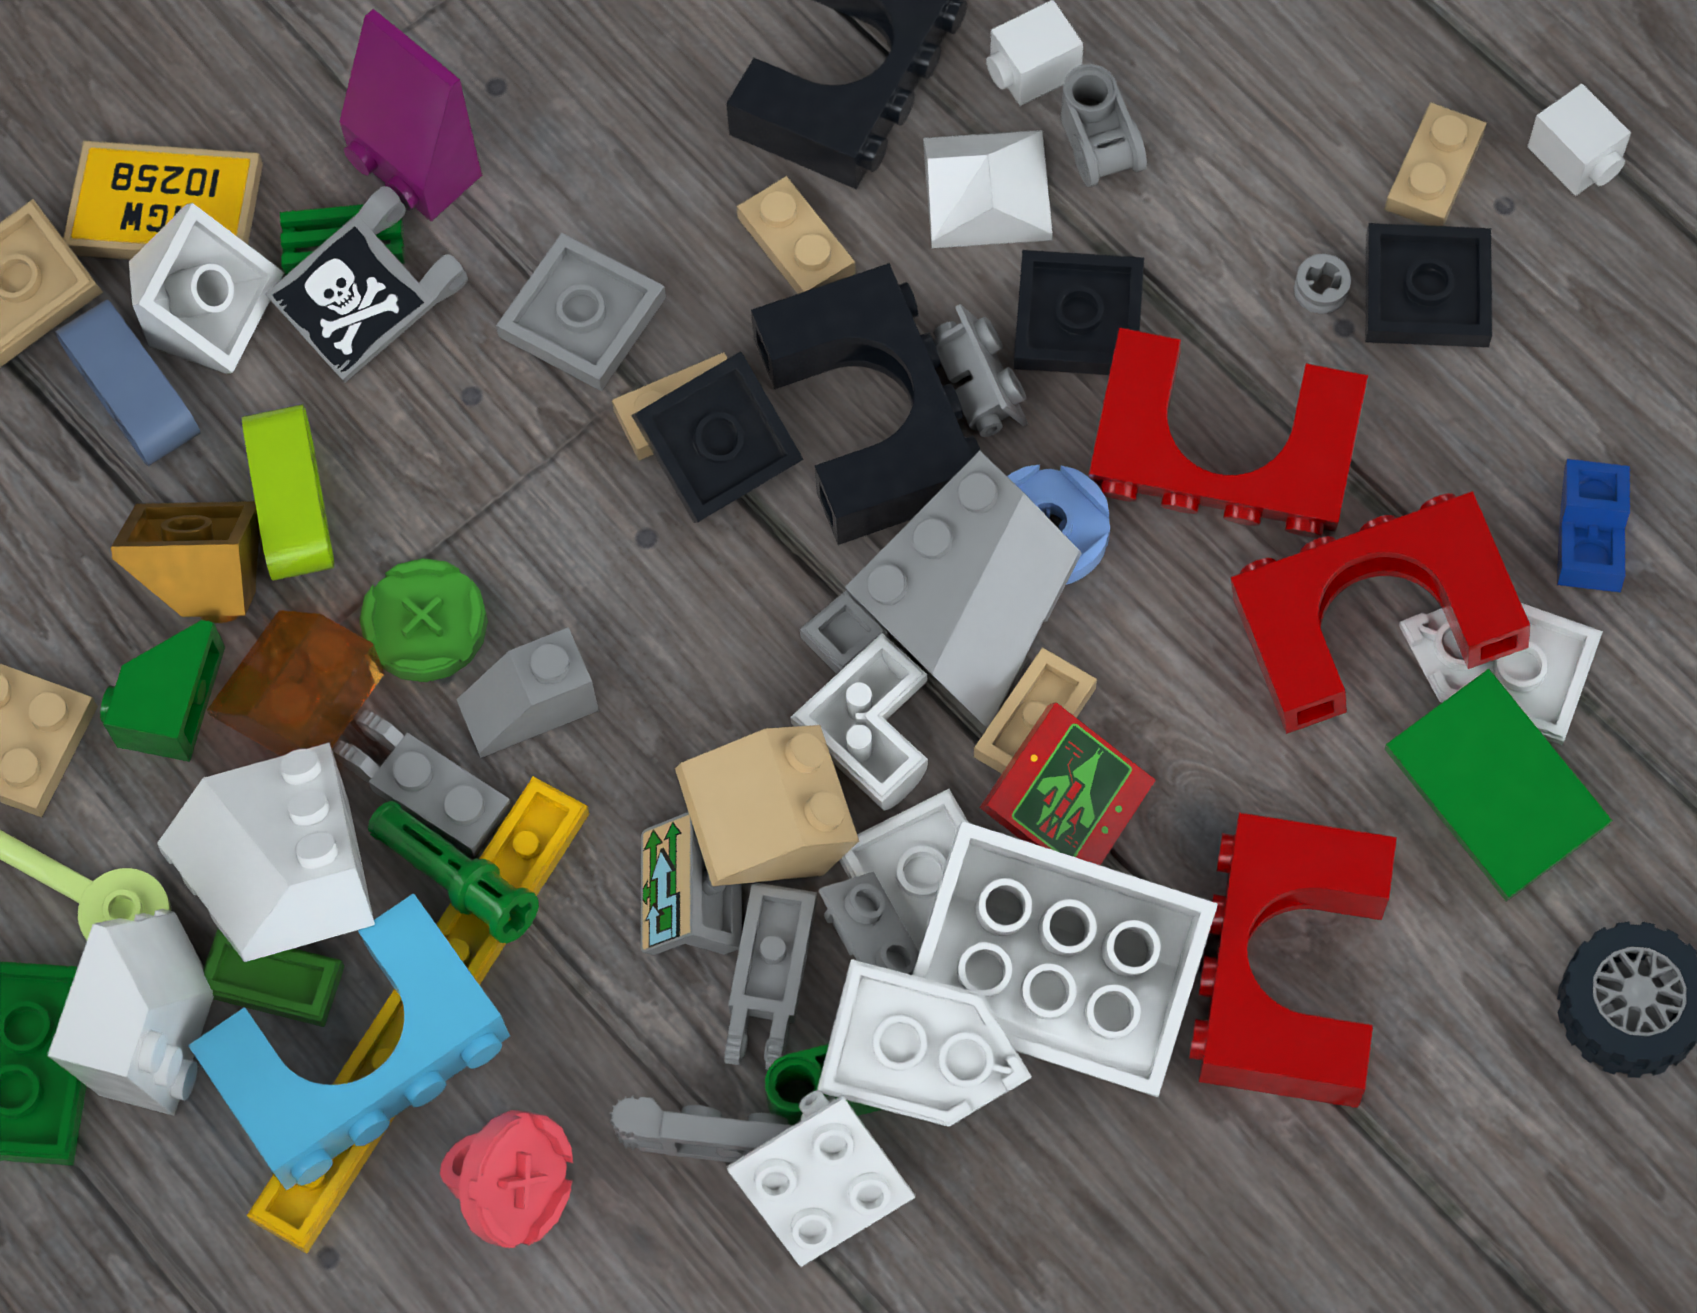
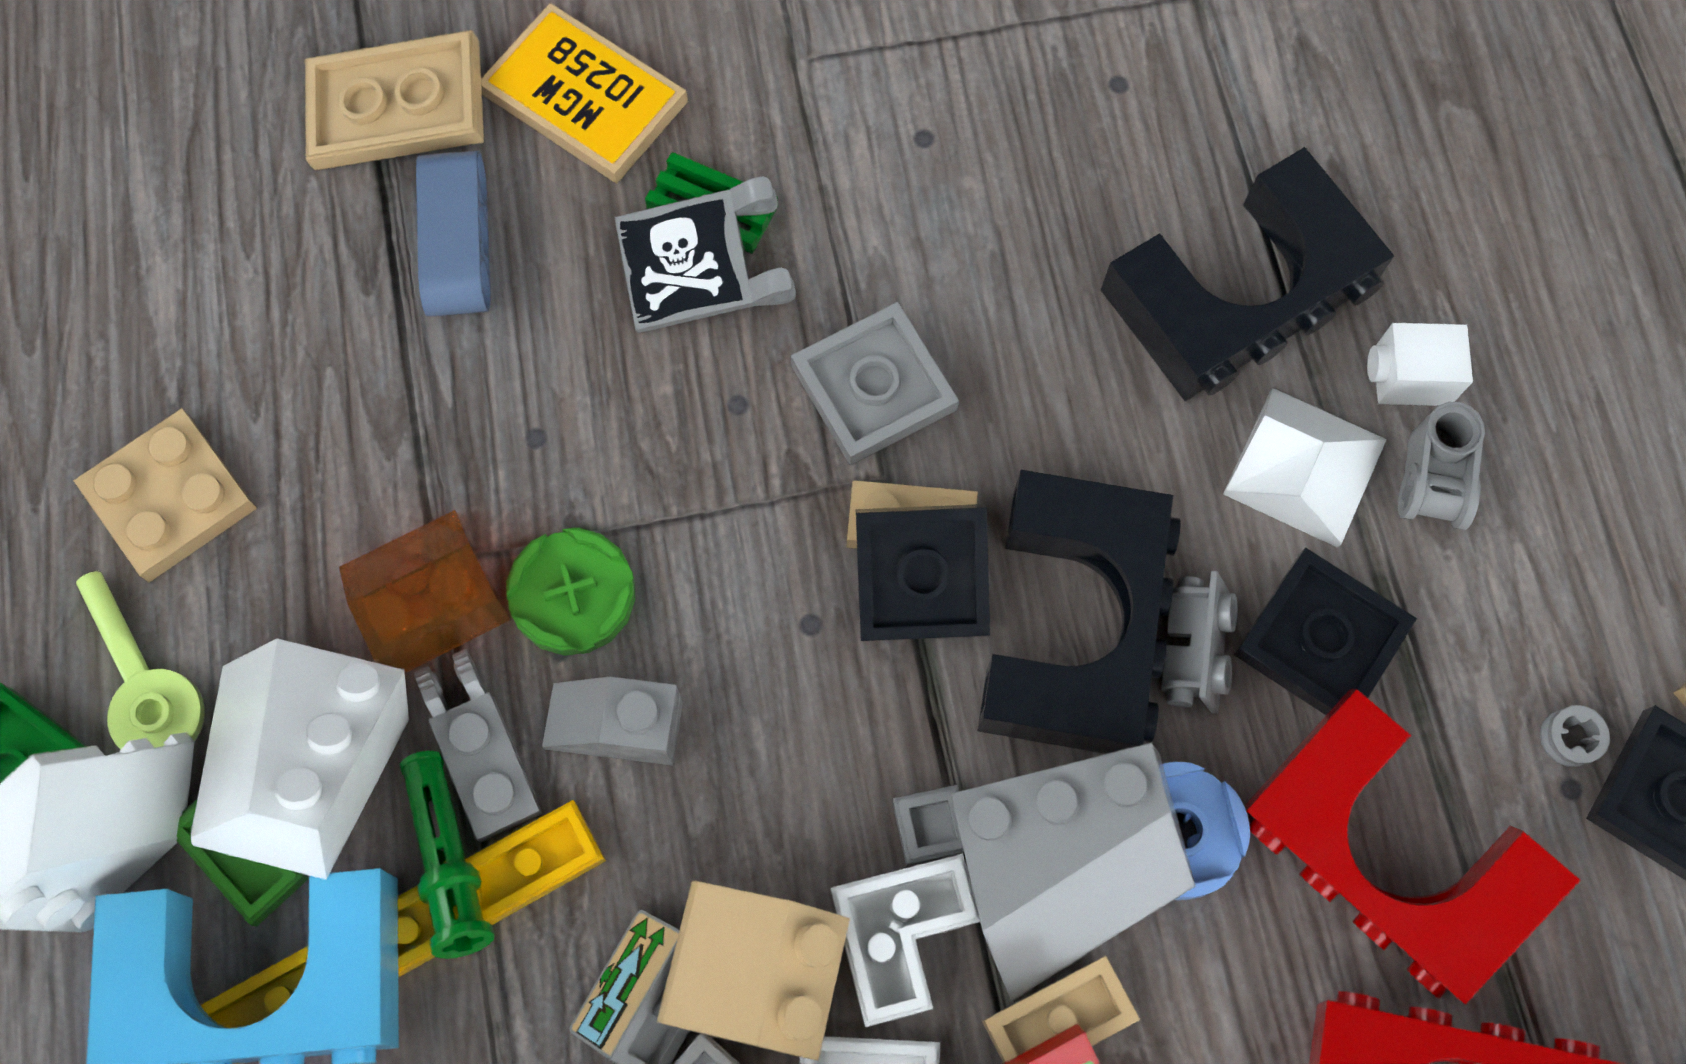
camera: 25 degrees right, 5 degrees up
(165, 694) = (309, 533): green slope -> none
(193, 555) = (407, 419): pearl gold slope -> none
(200, 290) = (560, 184): white slope -> none
(287, 492) = (523, 408): lime beam -> none
(407, 120) = (818, 129): magenta slope -> none
(795, 237) = (1104, 420): tan plate -> none

